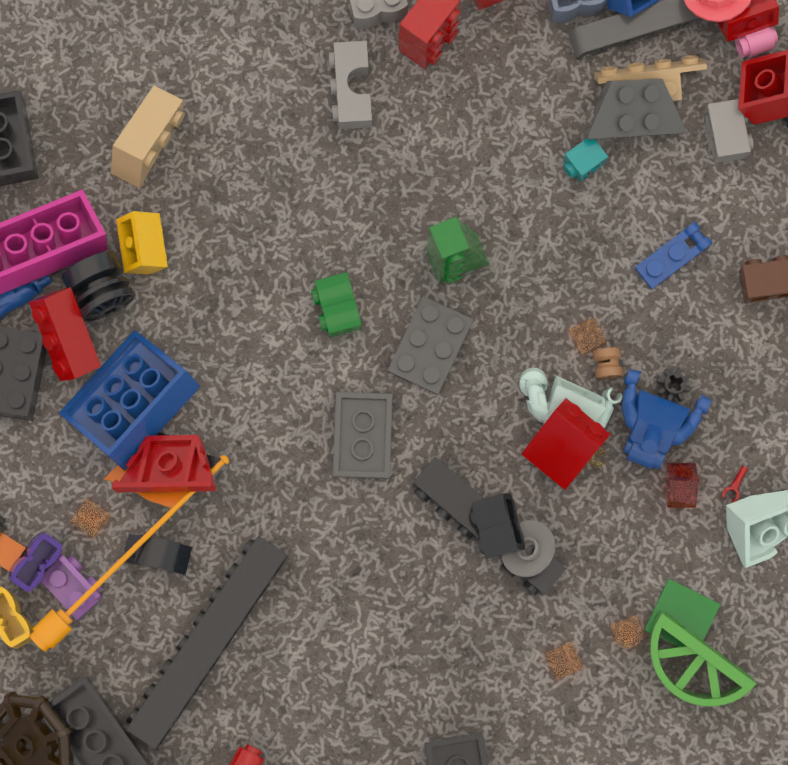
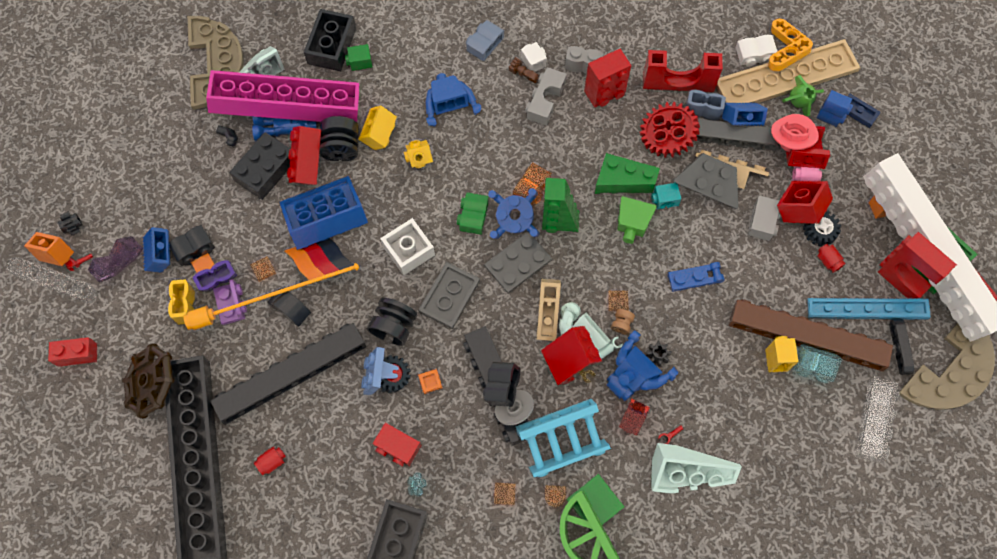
camera: 30 degrees right, 10 degrees down
(56, 147) = (359, 57): none -> green brick
(145, 136) = (411, 72): tan wedge -> none
(168, 465) = (321, 255): red wing -> none
(213, 148) = (448, 95): none -> blue torso
(218, 254) = (418, 153): none -> yellow brick
(222, 37) = (484, 40): none -> sand blue brick
(274, 395) = (408, 246): none -> white brick
(287, 59) = (516, 66): none -> reddish brown piece
(305, 32) = (533, 57): none -> white brick
(308, 508) = (392, 320): none -> black wheel
(332, 582) = (384, 373): none -> medium blue plate
(396, 226) = (533, 178): none -> clear orange brick
(396, 562) = (430, 381): none -> orange tile
(397, 667) = (397, 445): none -> brick
(401, 297) = (504, 210): none -> blue plate
(447, 703) = (416, 484): none -> clear light blue plant
(503, 391) = (548, 309): none -> tan slope
(517, 155) = (625, 176): none -> green wedge
(534, 38) = (671, 144): none -> red gear
(556, 211) = (634, 218): none -> bright green torso
(586, 540) = (549, 423): none -> medium azure fence

